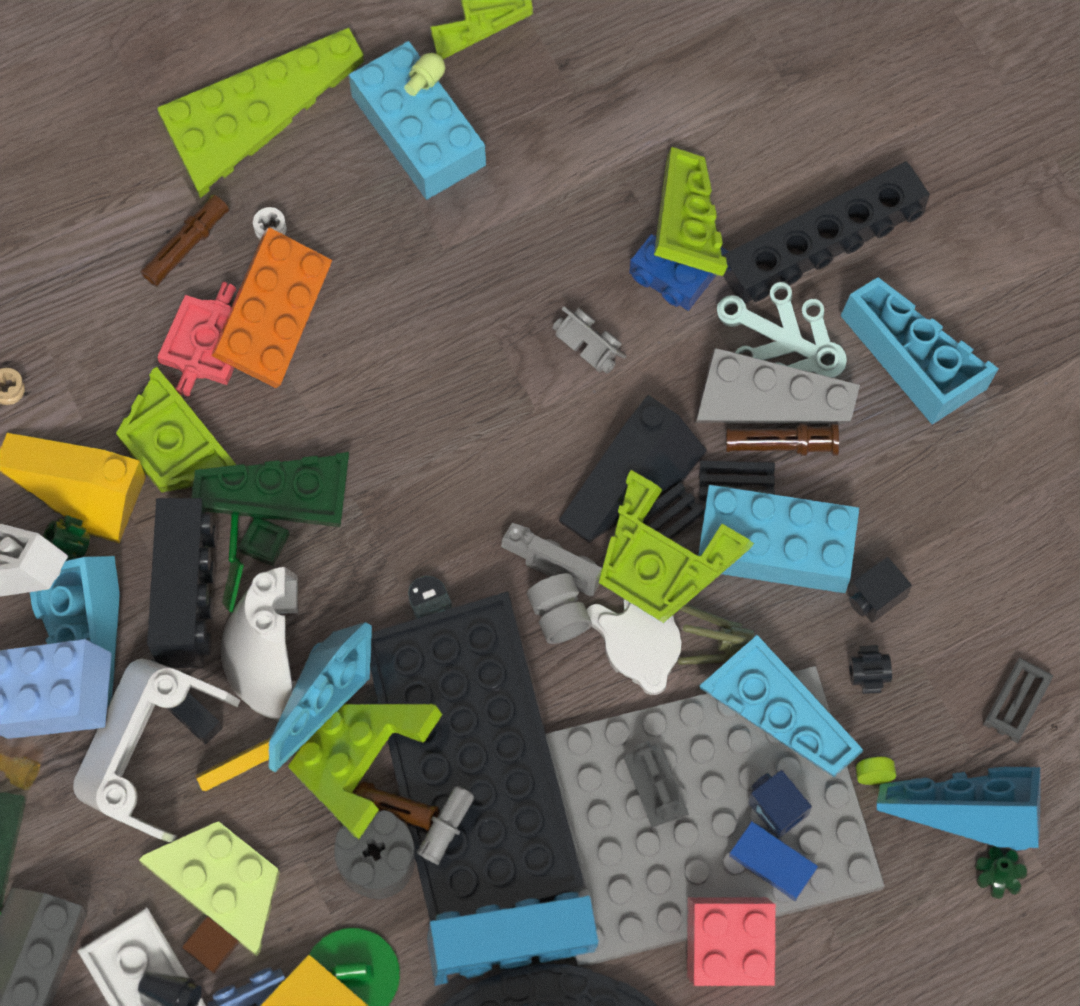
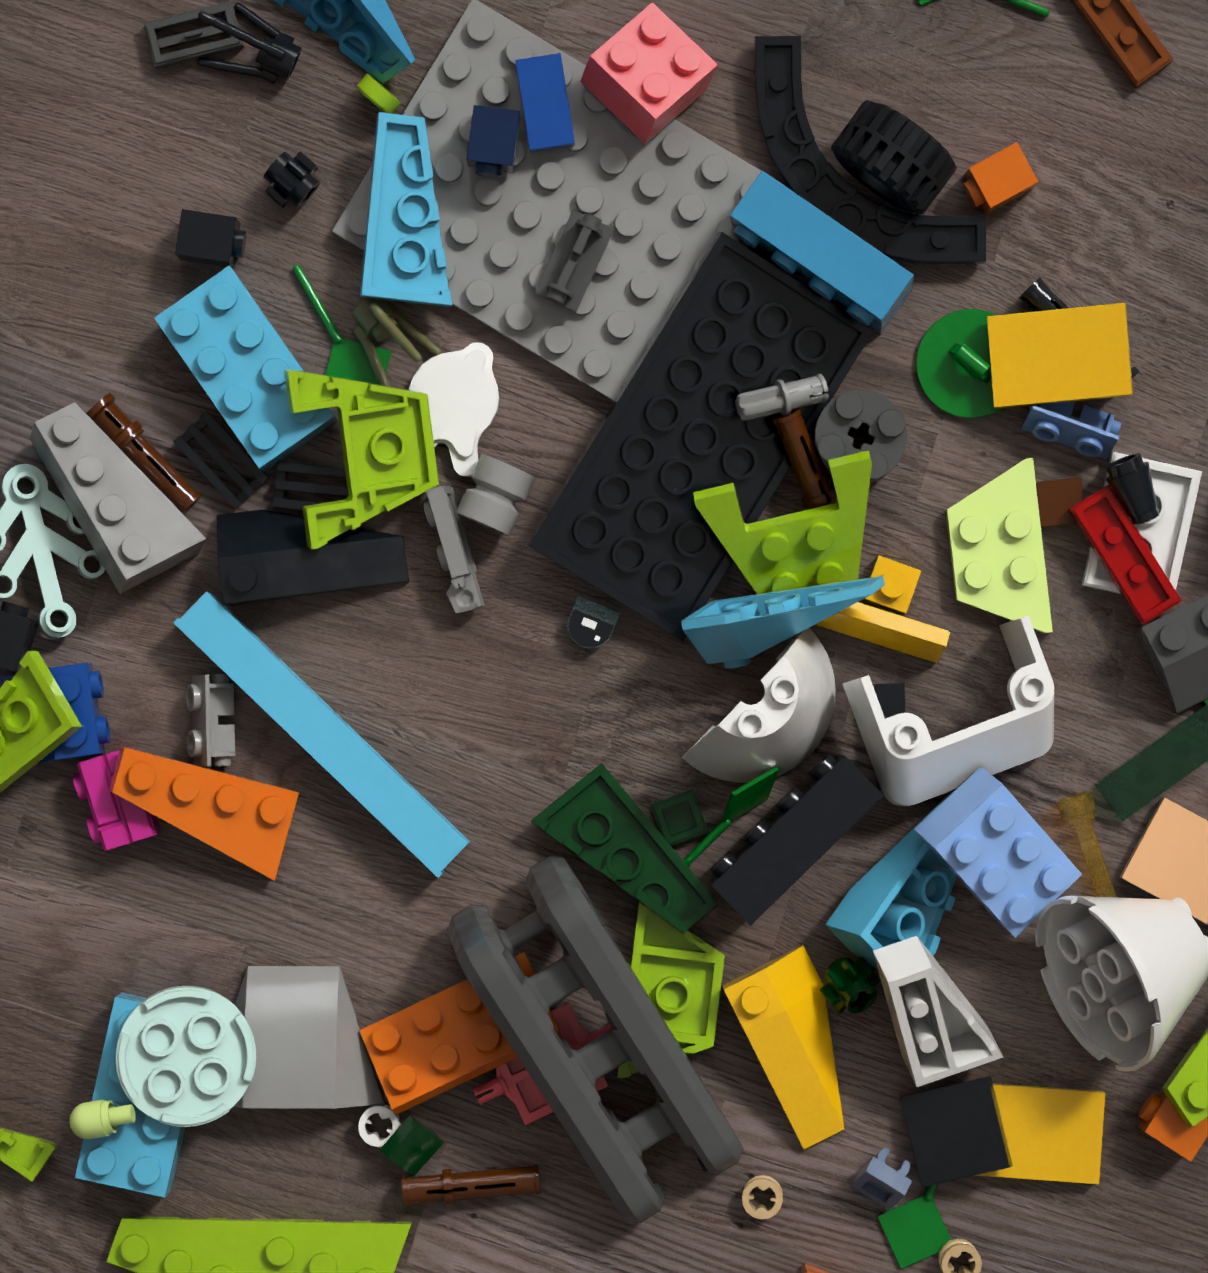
camera: 135 degrees left, 20 degrees up
(136, 947) = (1124, 555): none -> red tile
(208, 392) = (570, 1075): none -> dark grey beam
(239, 229) = (411, 1146): none -> dark green tile
(268, 793) = (899, 584): none -> yellow plate
(360, 219) = (304, 1040): none -> light grey wedge
(412, 146) = (185, 1056): none -> light aqua tile
(516, 389) = (322, 733): none -> medium azure tile
(537, 292) = (218, 808): none -> orange wing
(595, 250) = (114, 818): none -> dark pink brick
(723, 602) = (347, 356): none -> green piece
(959, 732) = (275, 53): none -> black plant

